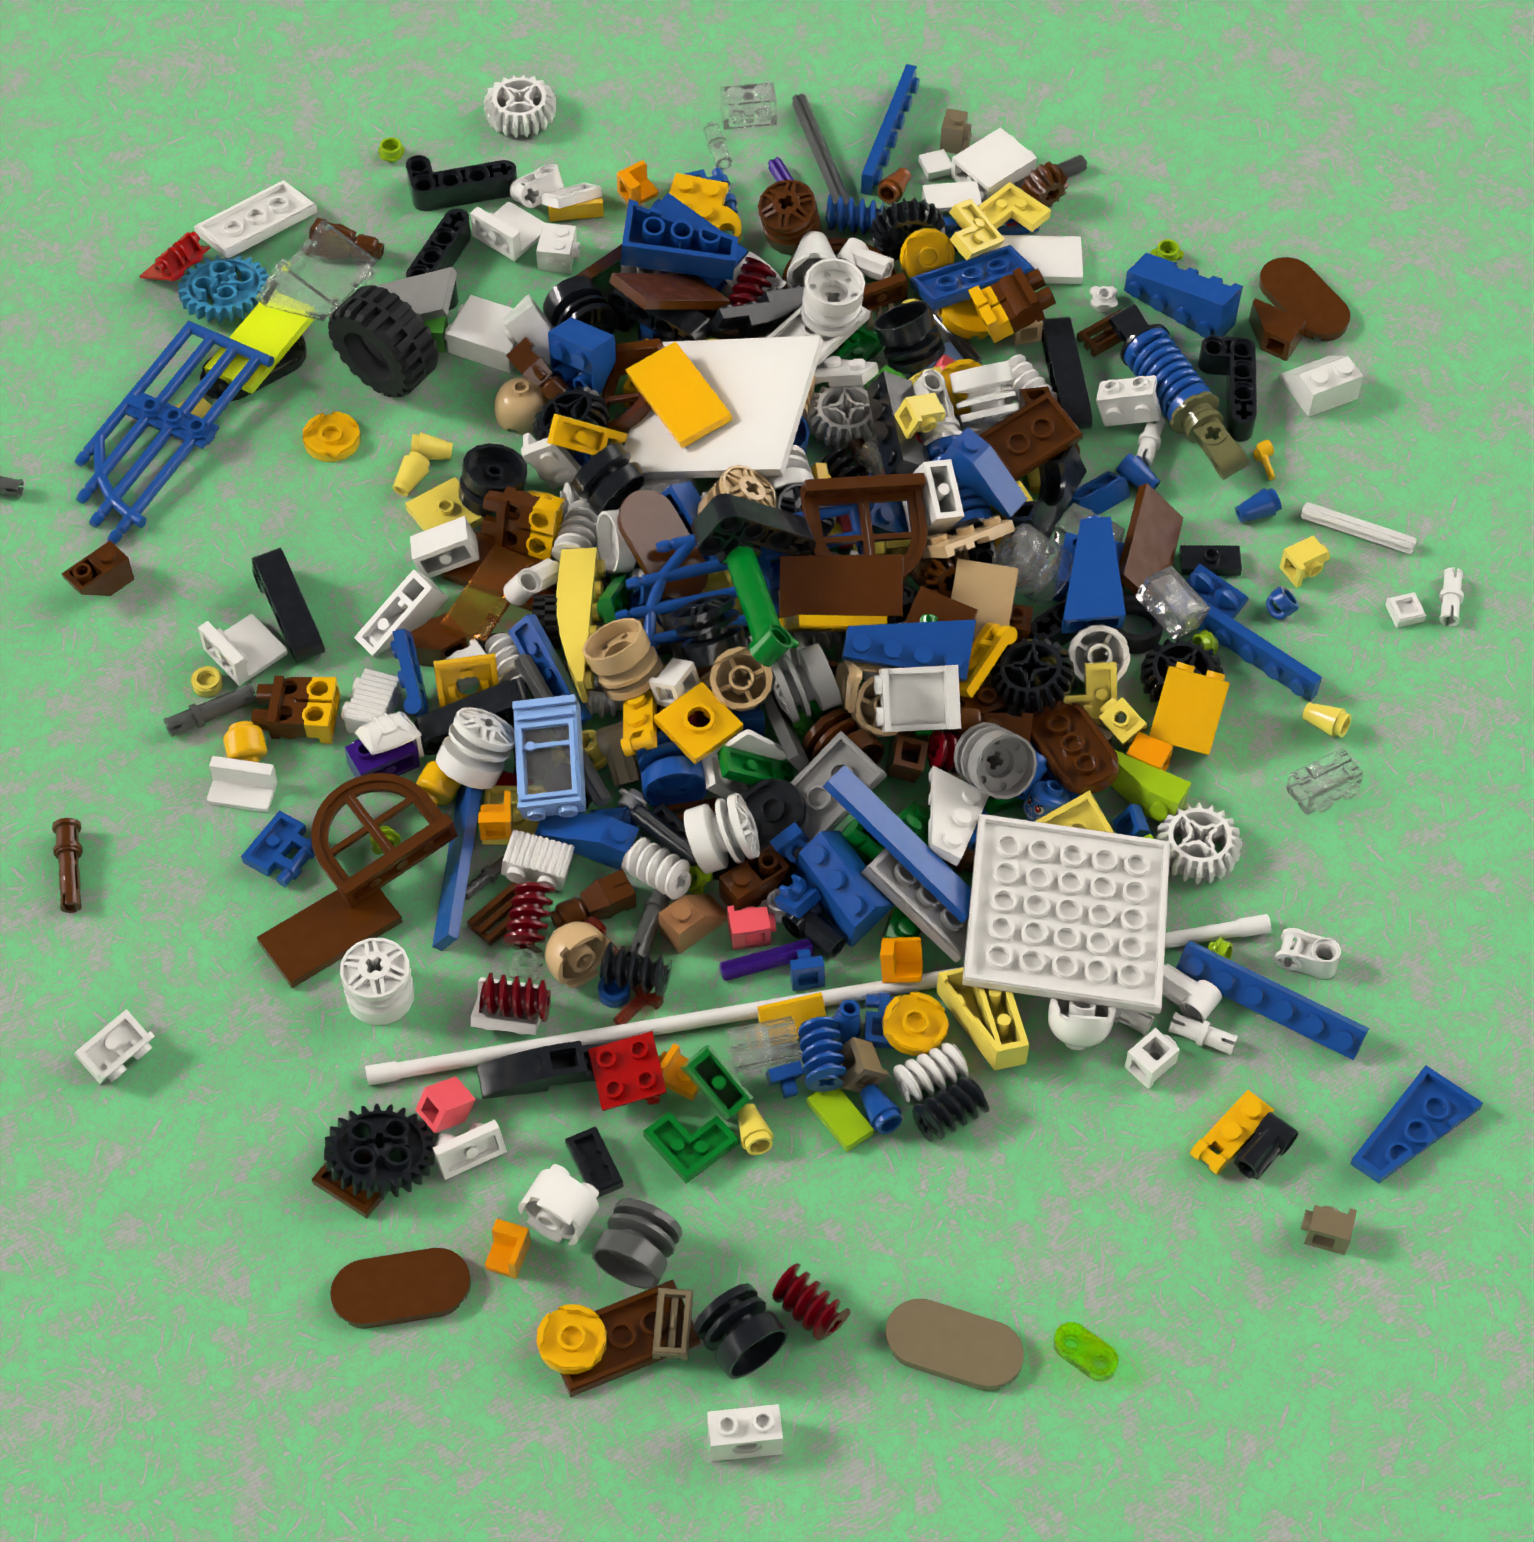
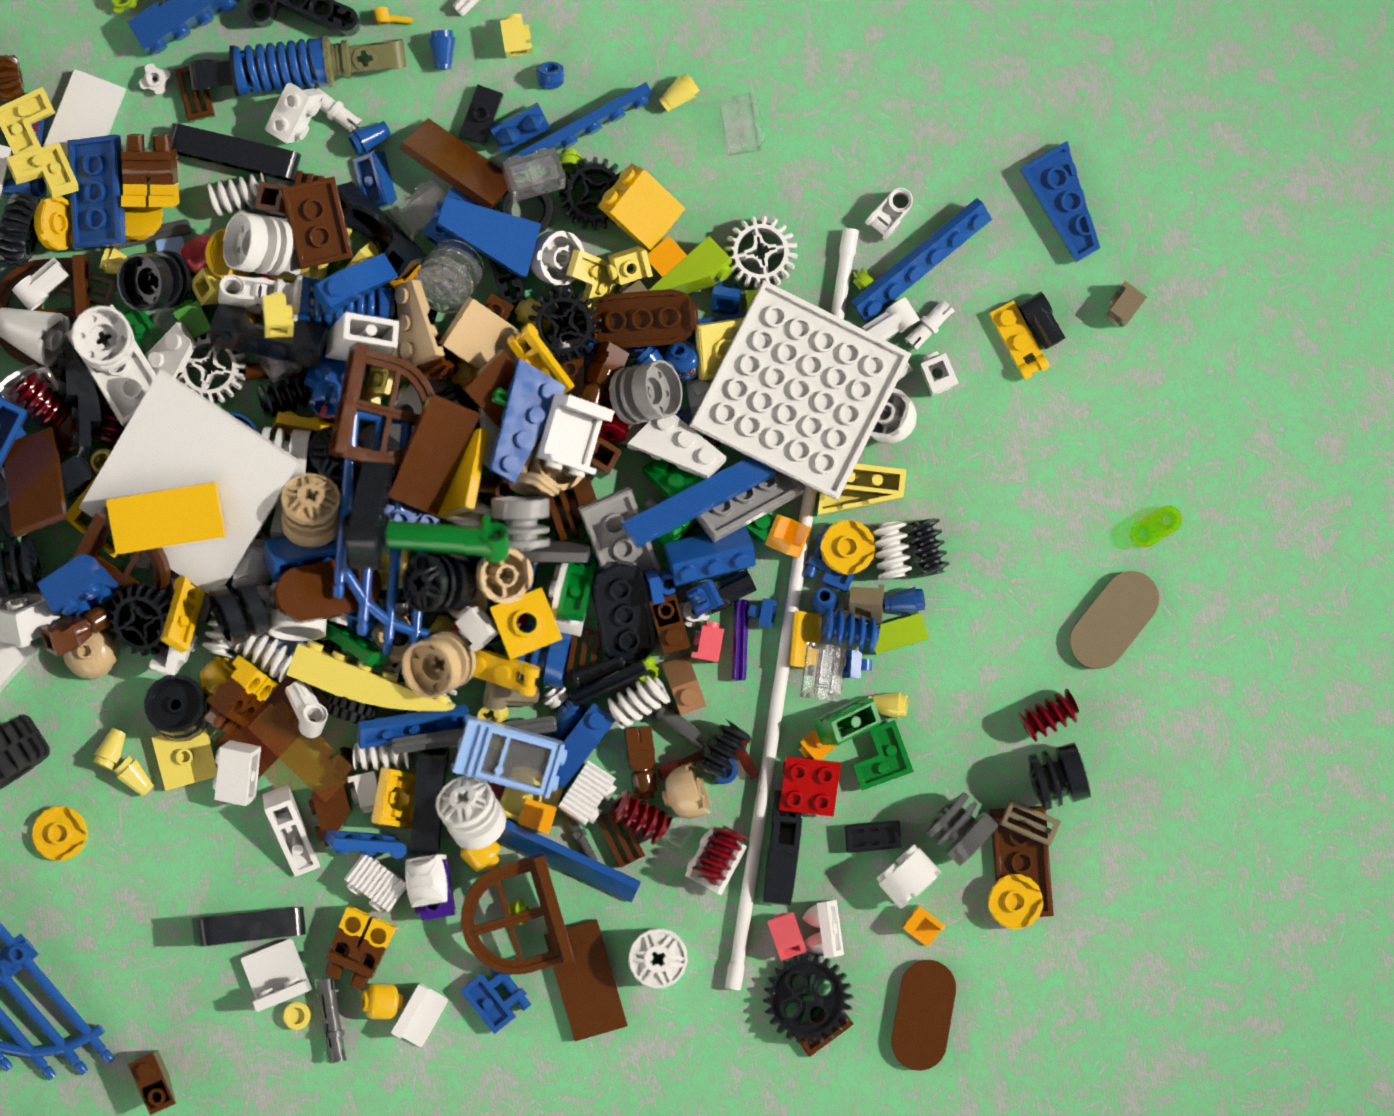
camera: 70 degrees left, 30 degrees up
(716, 835) = (634, 640): white wheel -> none
(745, 1432) = (1133, 799): white brick -> none

